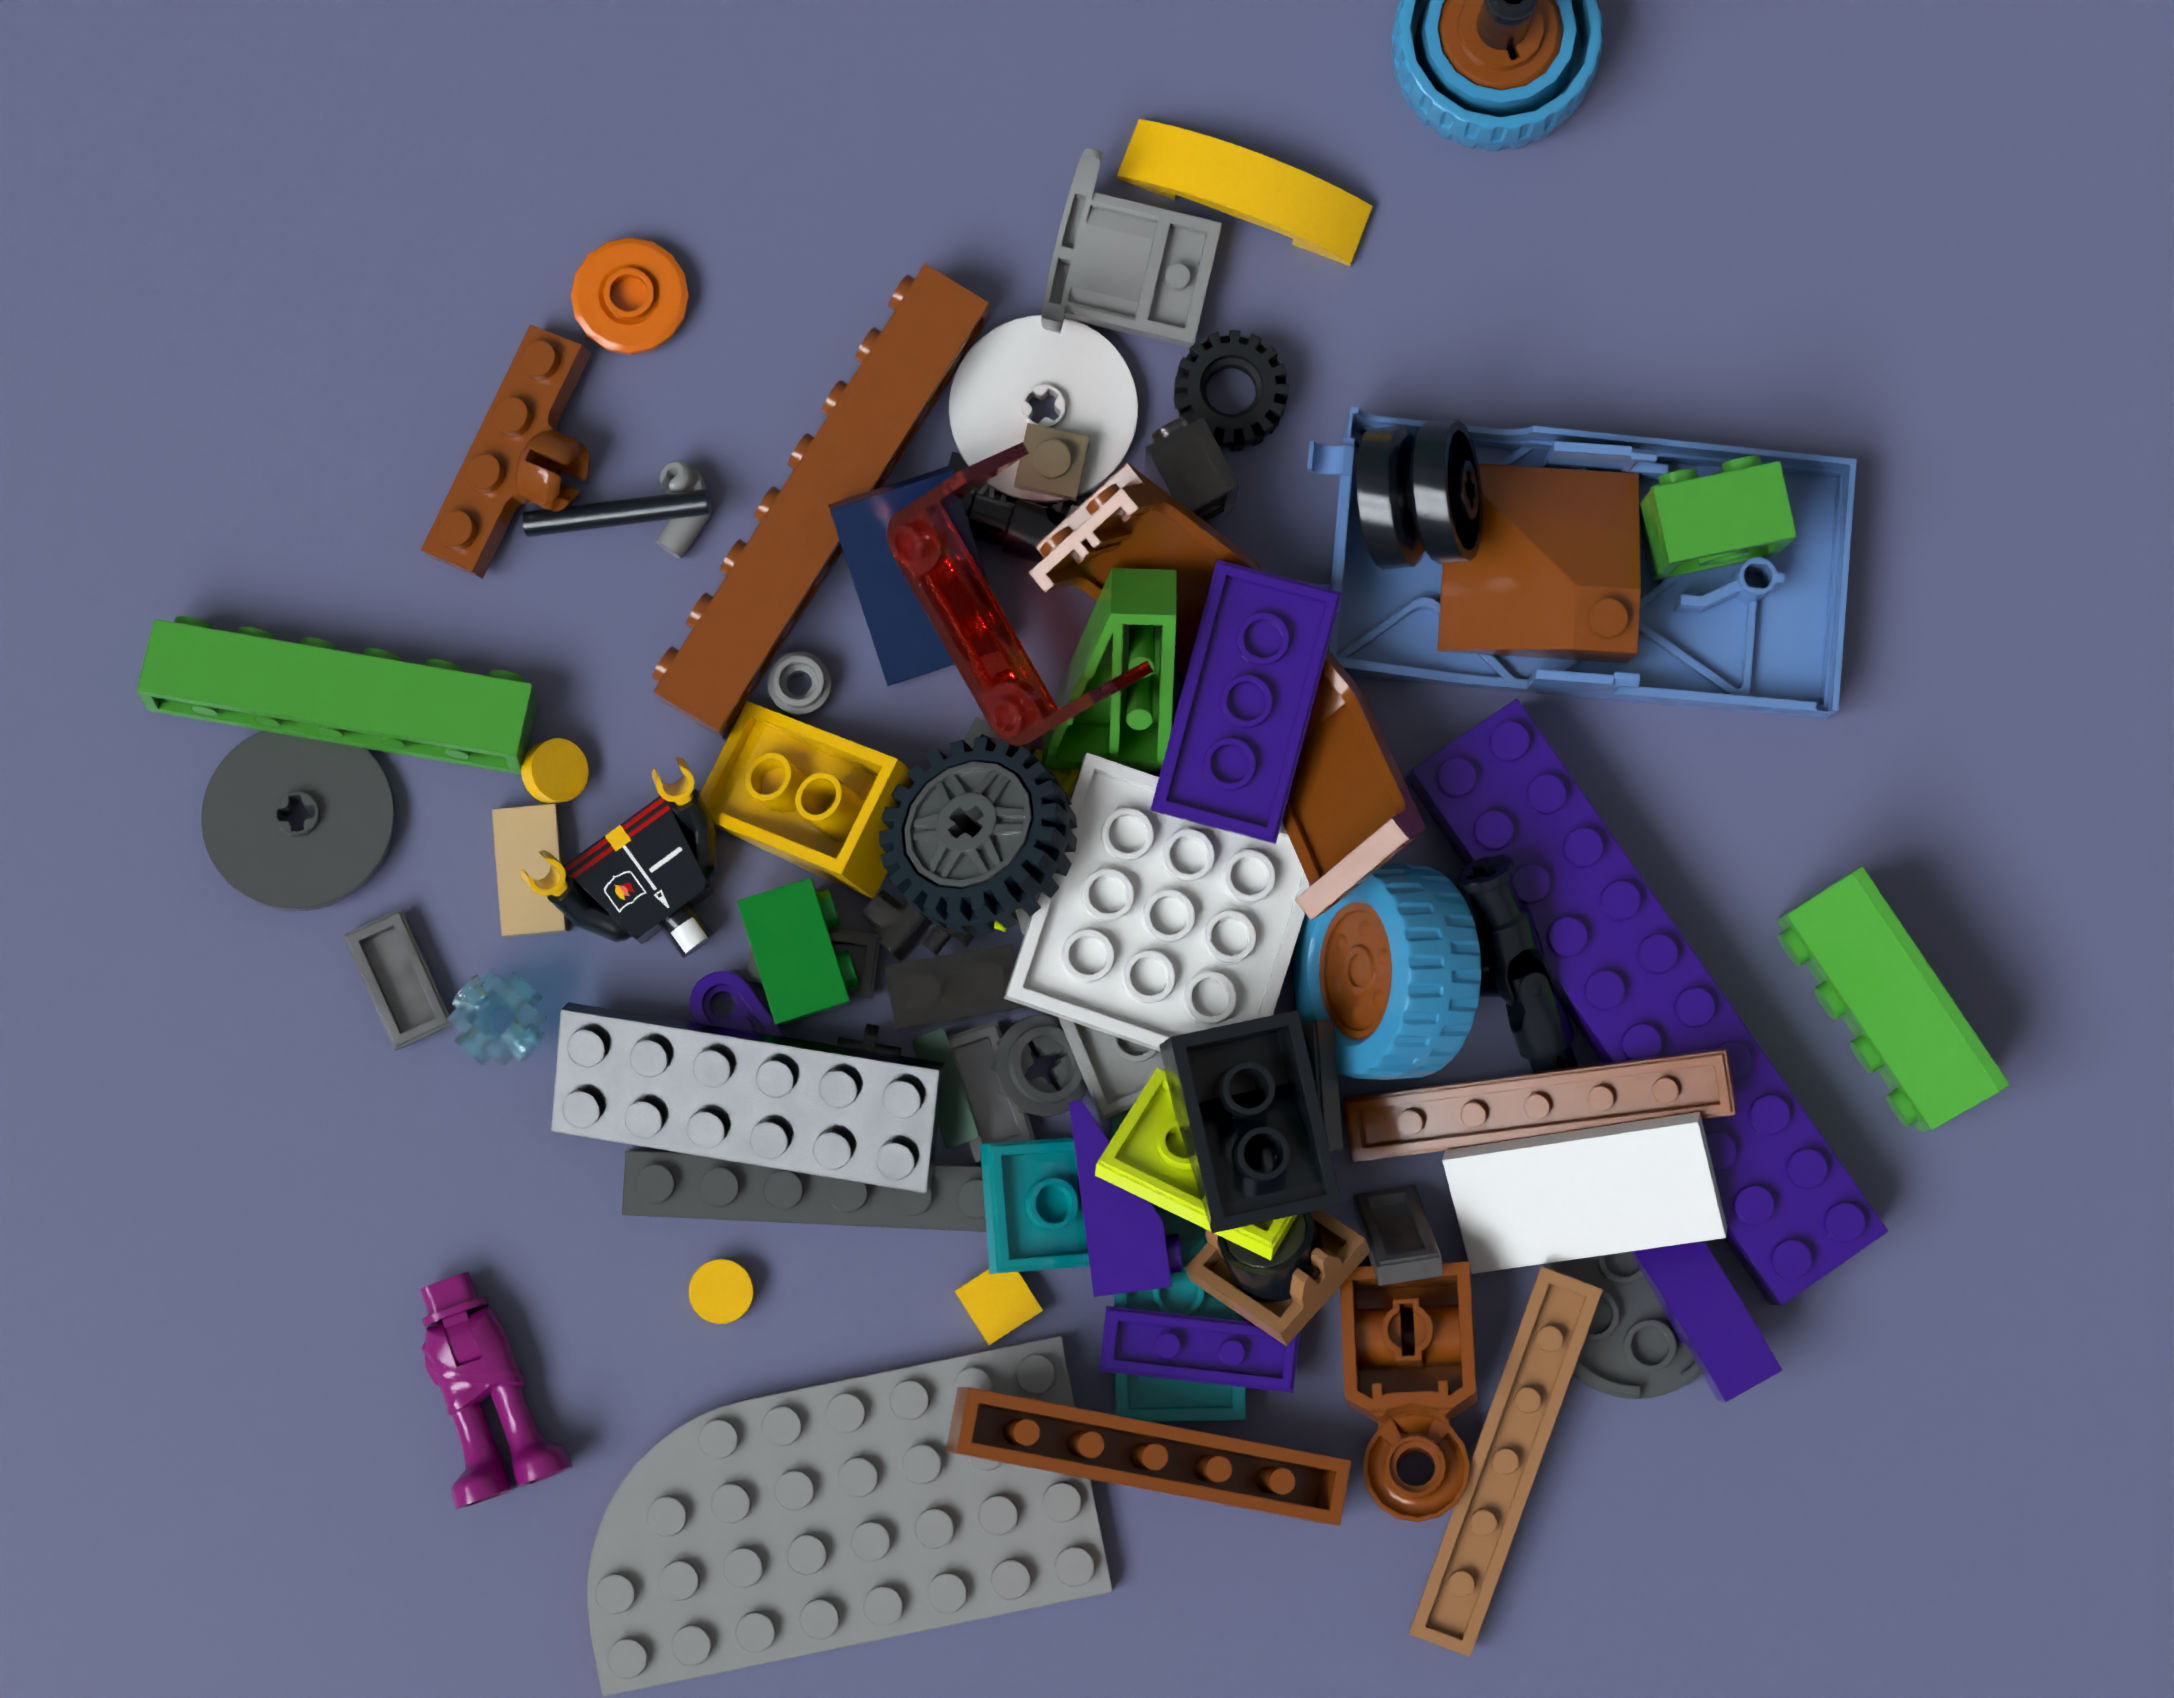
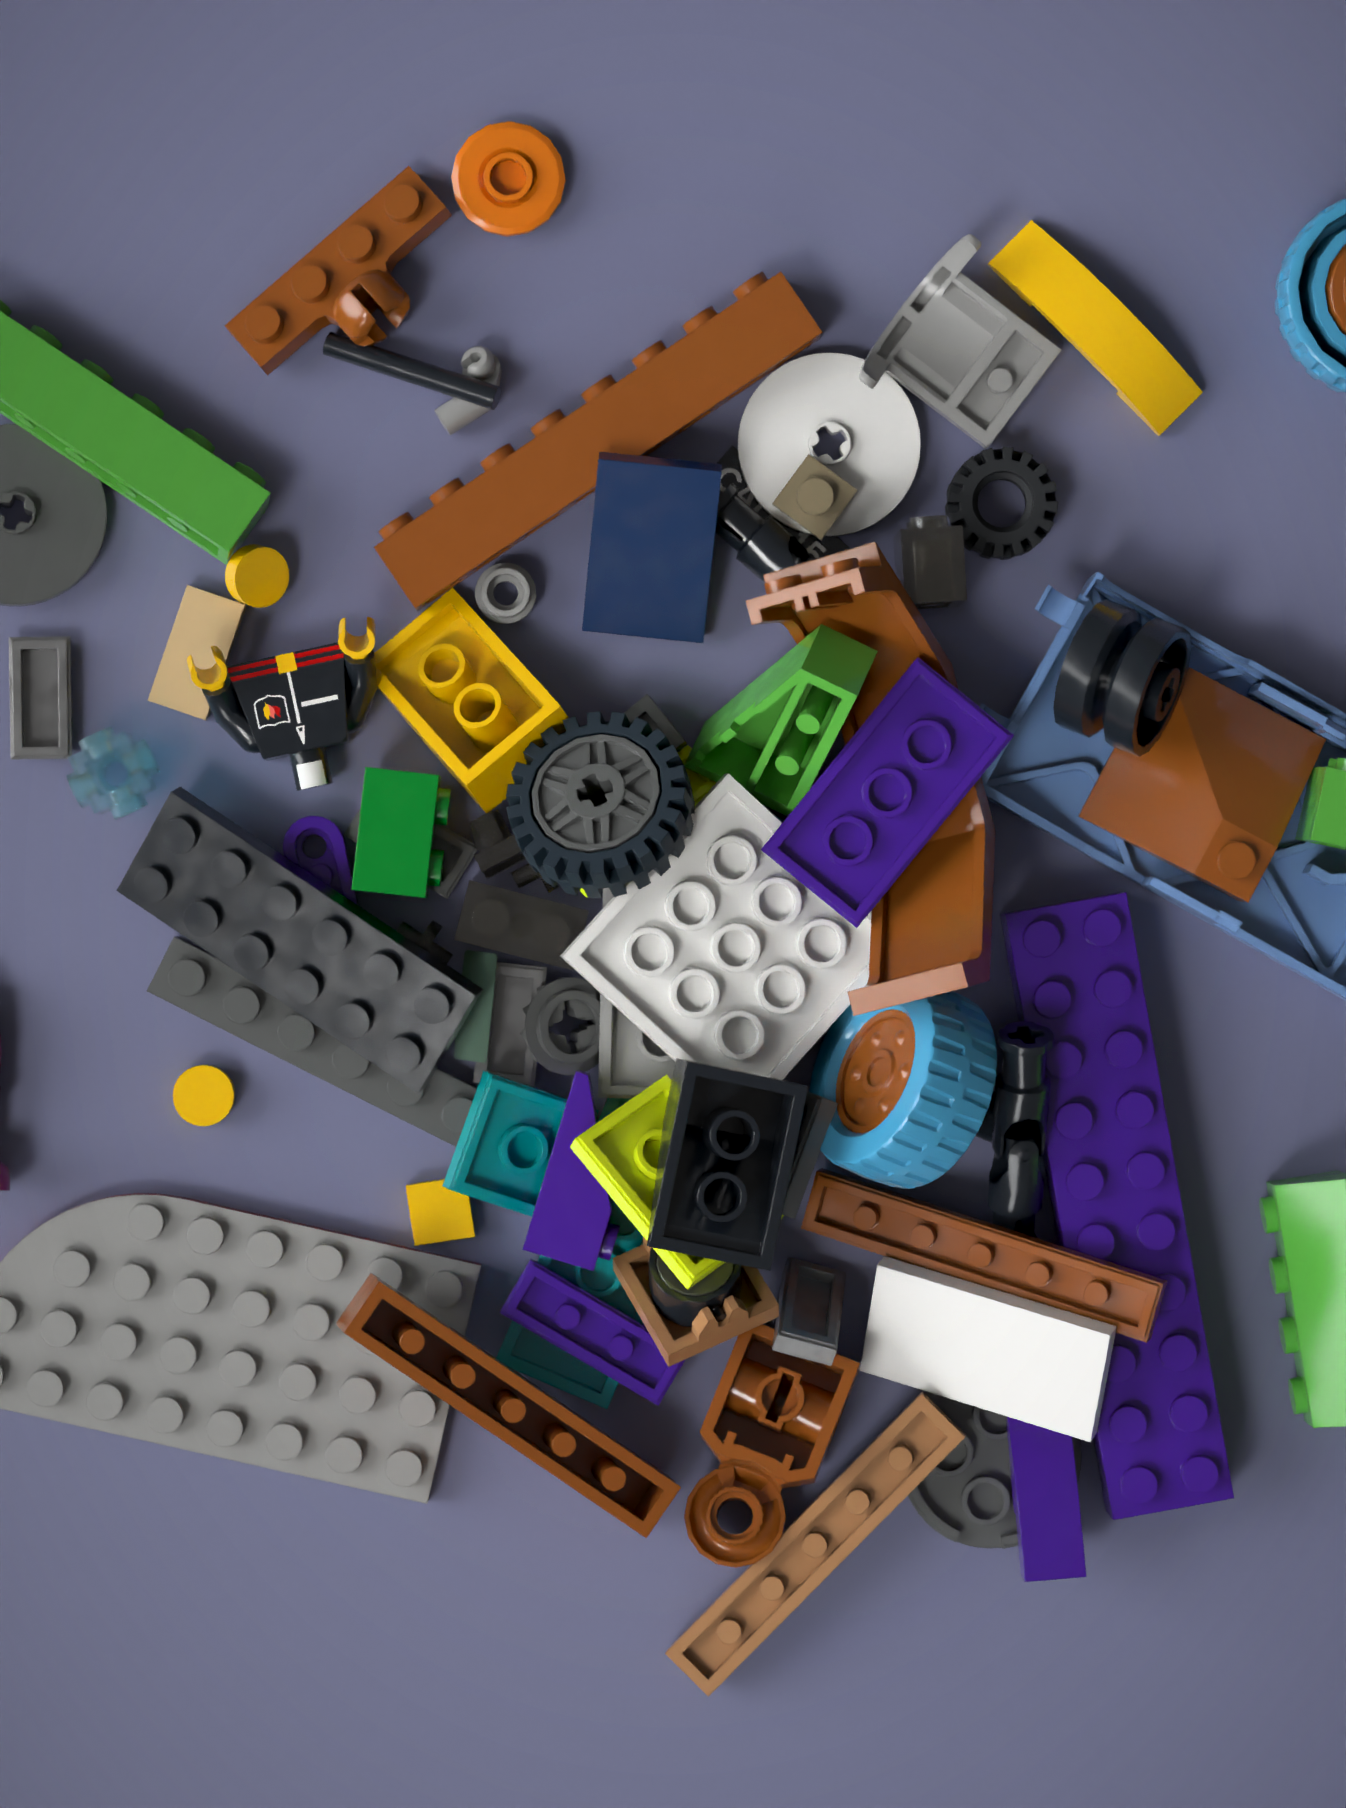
camera: 25 degrees right, 5 degrees up
(971, 618) = (680, 626): clear red windscreen -> none

